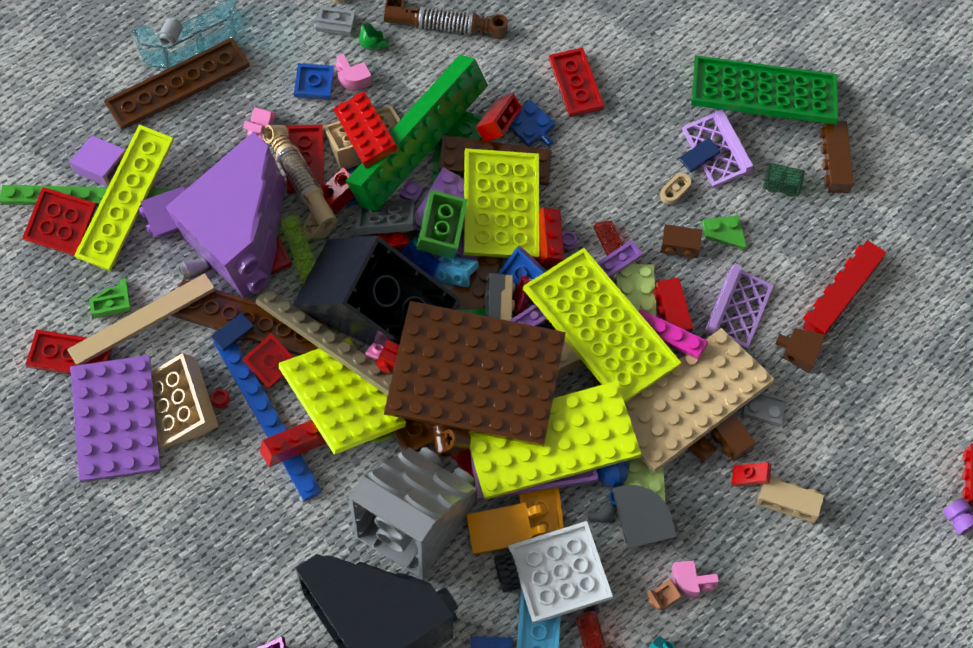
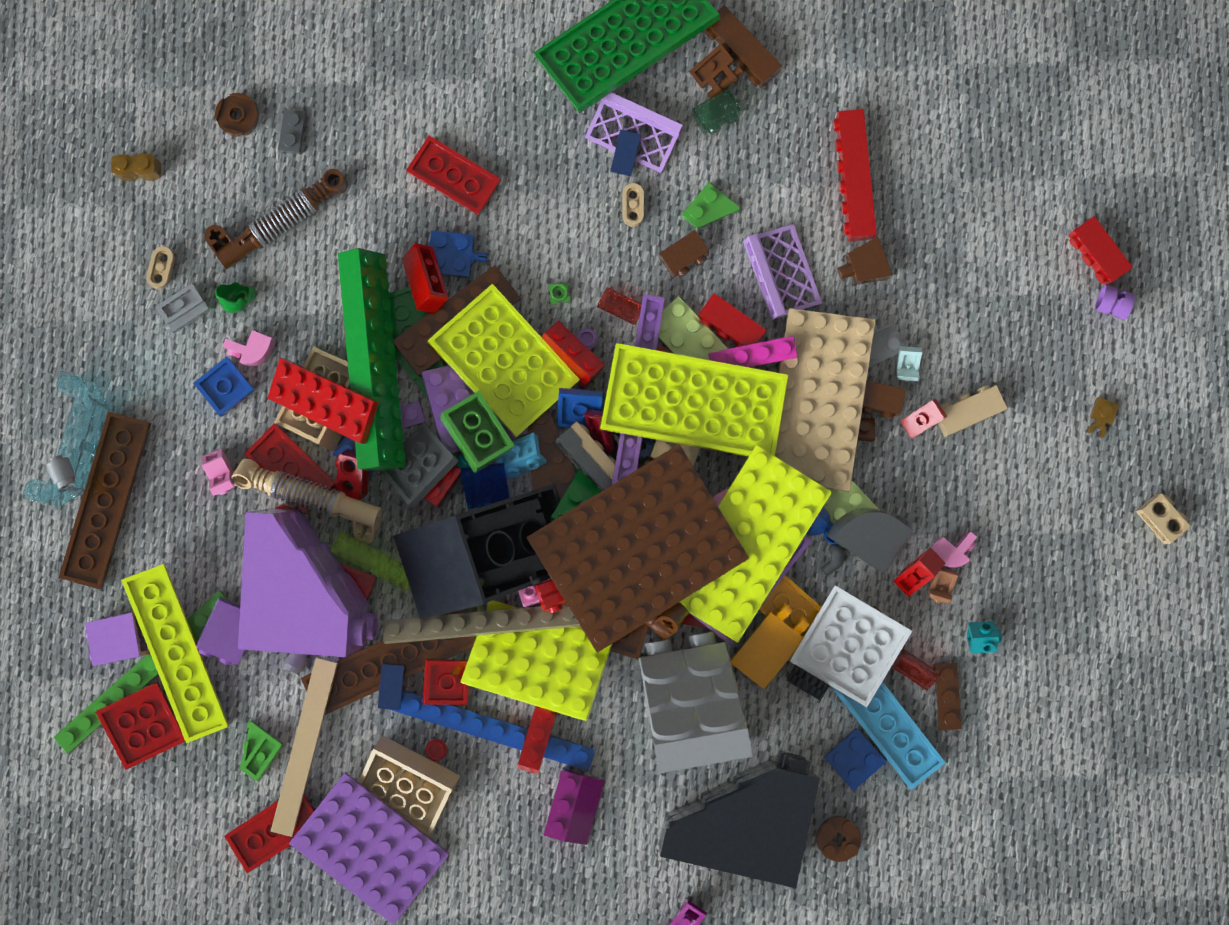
camera: 35 degrees left, 20 degrees up
(270, 512) = (574, 807): none -> magenta slope
(579, 196) = (554, 289): none -> bright green plate
(655, 567) = (919, 572): none -> red brick
(774, 432) = (908, 363): none -> light aqua bracket
(806, 150) = (712, 66): none -> reddish brown plate
(886, 585) = (1103, 413): none -> pearl gold plate

